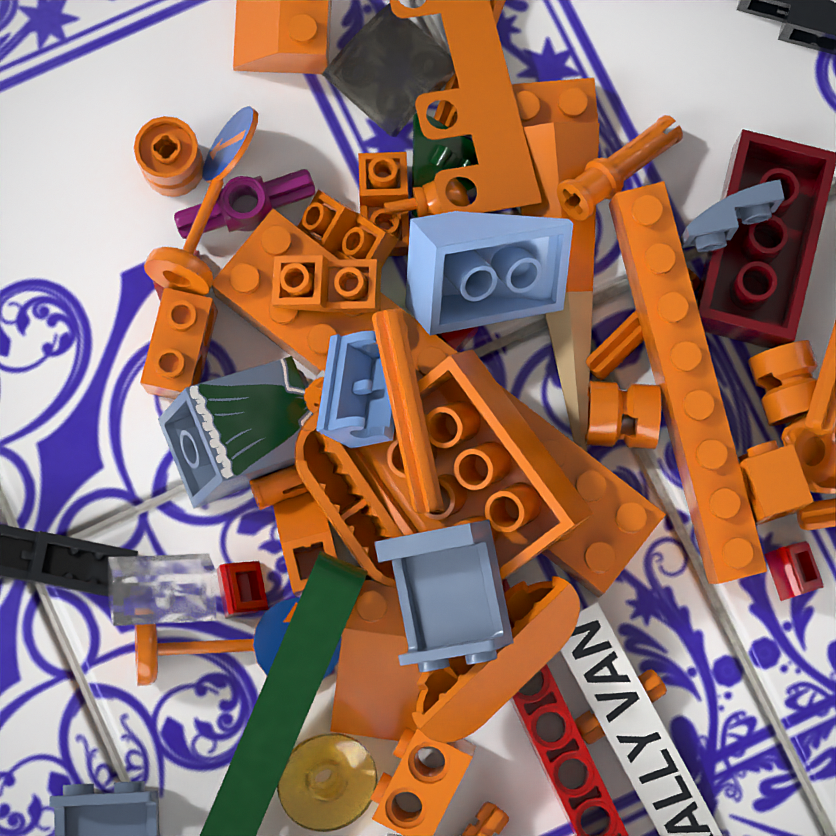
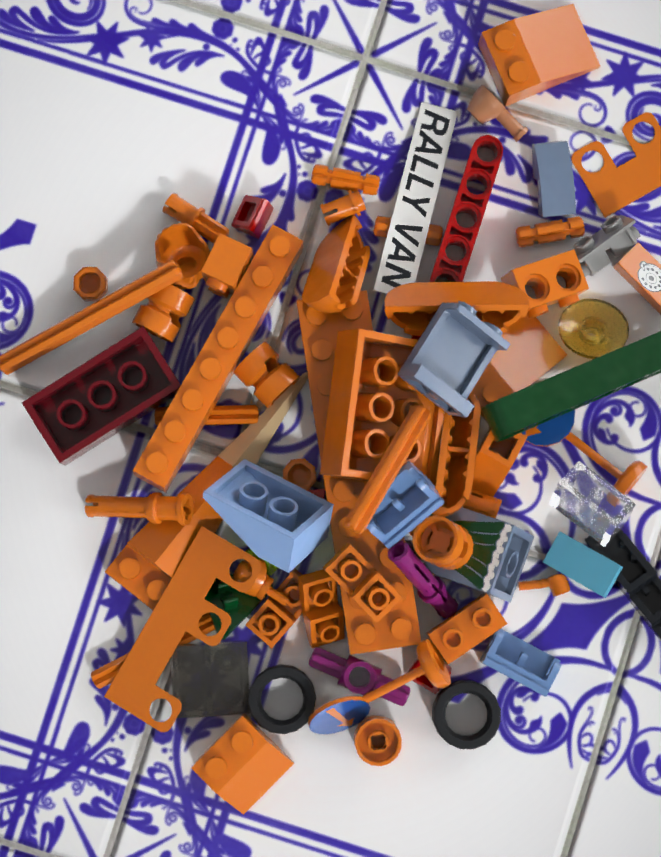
camera: 140 degrees left, 5 degrees up
(77, 237) = (466, 741): none -> black tyre
(91, 365) = (521, 662): none -> medium blue hinge
(115, 520) = (582, 564): none -> medium azure tile
(127, 481) = (558, 584): none -> orange hand
(241, 588) = (547, 469): red slope -> none
(280, 395) = (437, 536): none -> orange wheel
(293, 80) = (259, 714): none -> black tyre
(303, 344) = (430, 587): none -> magenta pin
(493, 346) = (300, 473): none -> orange tile
(654, 587) = (337, 269): none -> orange brick
(710, 669) = (346, 206): none -> orange pin
(719, 222) = (124, 421): sand blue slope -> none
(737, 700) = (345, 179): none -> orange axle

